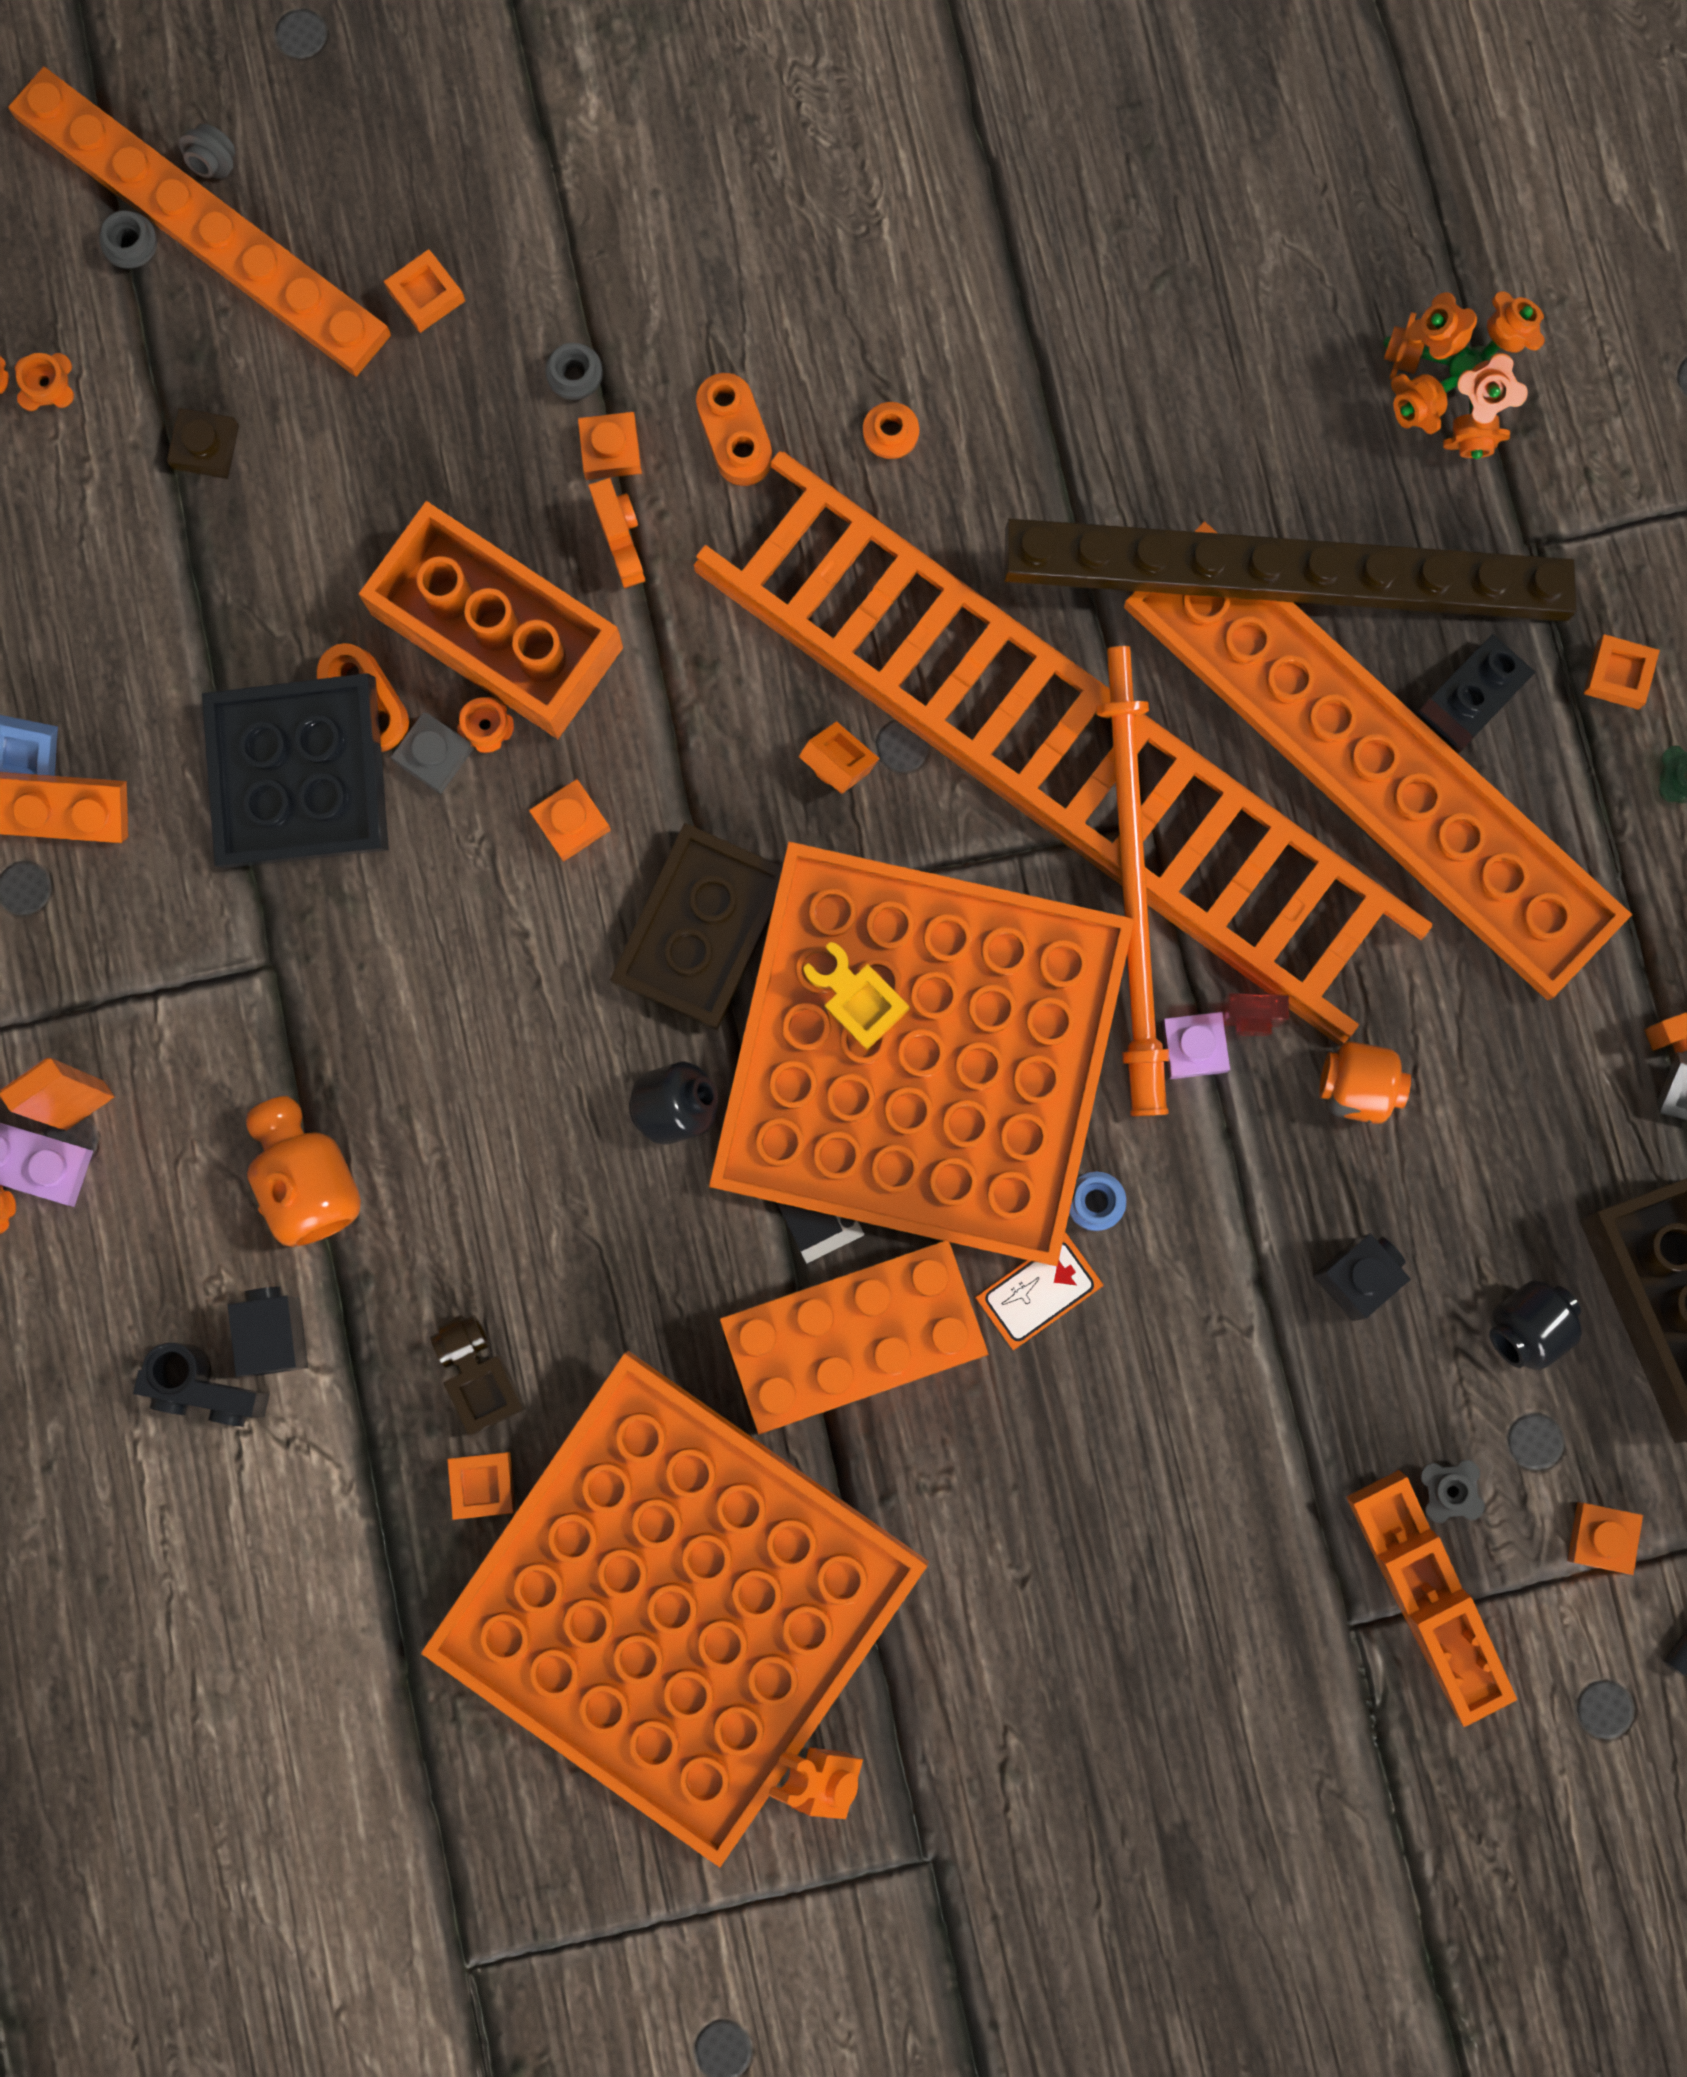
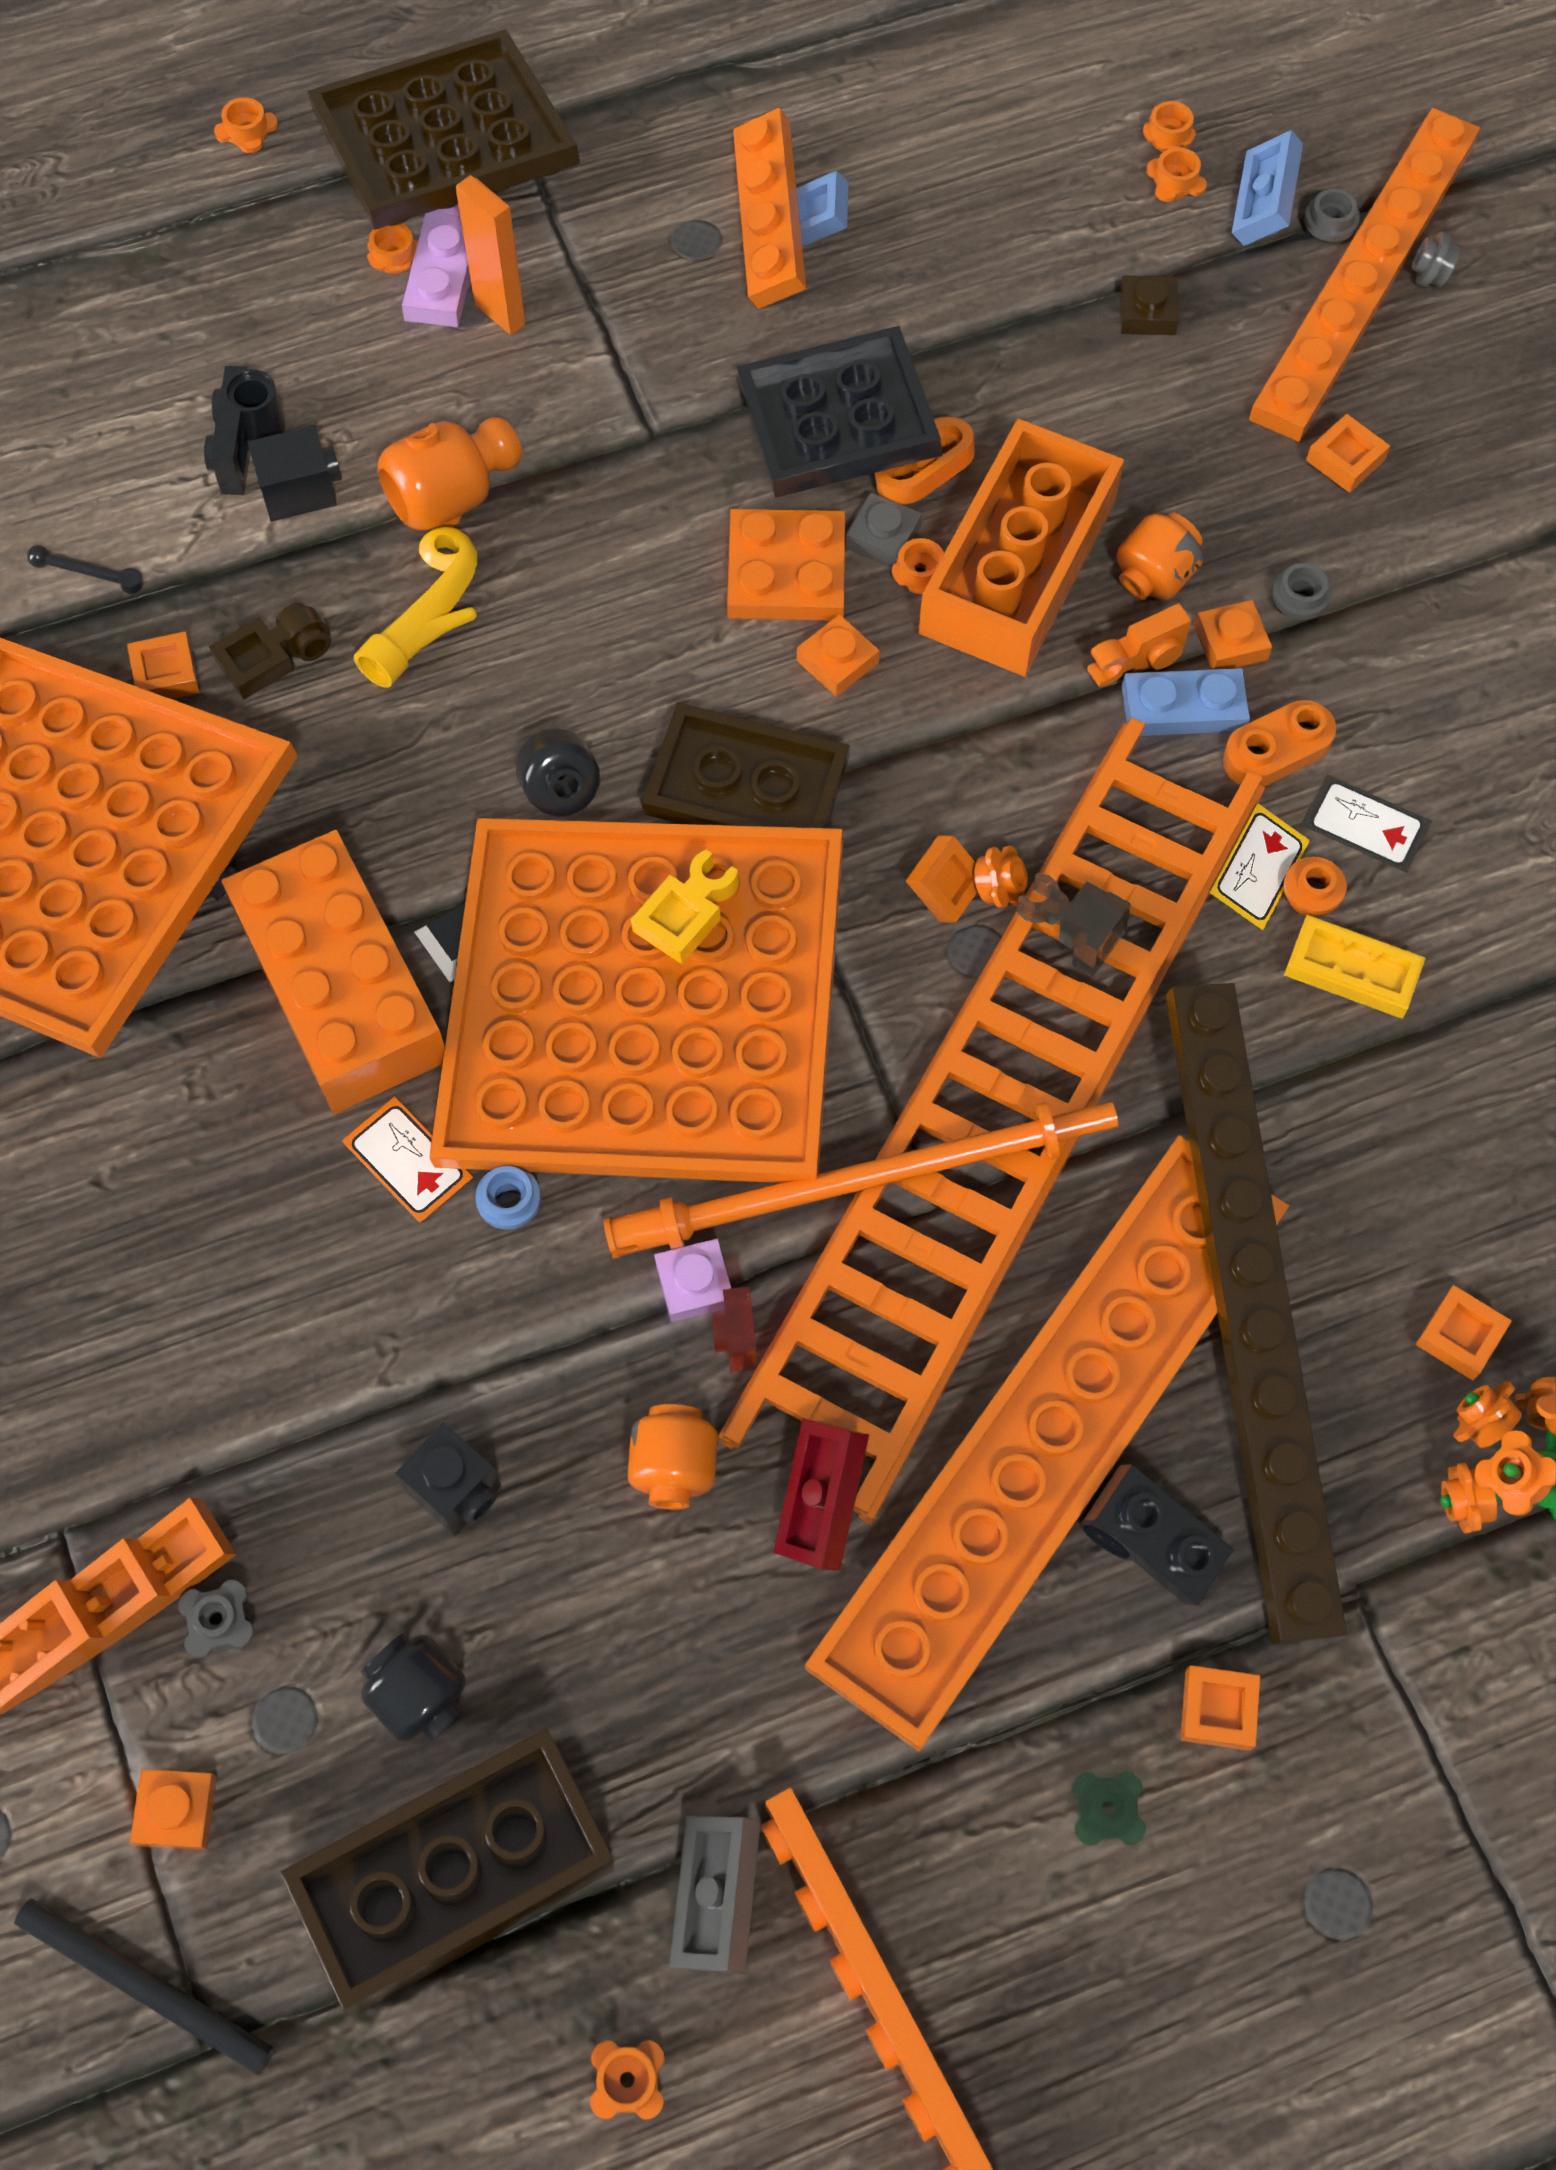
camera: 80 degrees right, 15 degrees down
(84, 293) = (1267, 188): none -> medium blue plate
(358, 1518) = (129, 579): none -> black hinge
(456, 853) = (786, 564): none -> orange plate
(463, 1215) = (387, 654): none -> yellow plant
(518, 493) = (1160, 556): none -> orange head
(675, 504) = (1186, 701): none -> medium blue plate
(825, 370) = (1367, 823): none -> white sticker
(844, 707) = (1000, 876): none -> orange plate
(860, 474) = (1258, 865): none -> white sticker
(919, 635) = (1087, 924): none -> clear smoke piece
(978, 414) = (1354, 966): none -> yellow plate
(1331, 405) = (1463, 1332): none -> orange plate
(1415, 960) = (821, 1494): none -> dark red plate

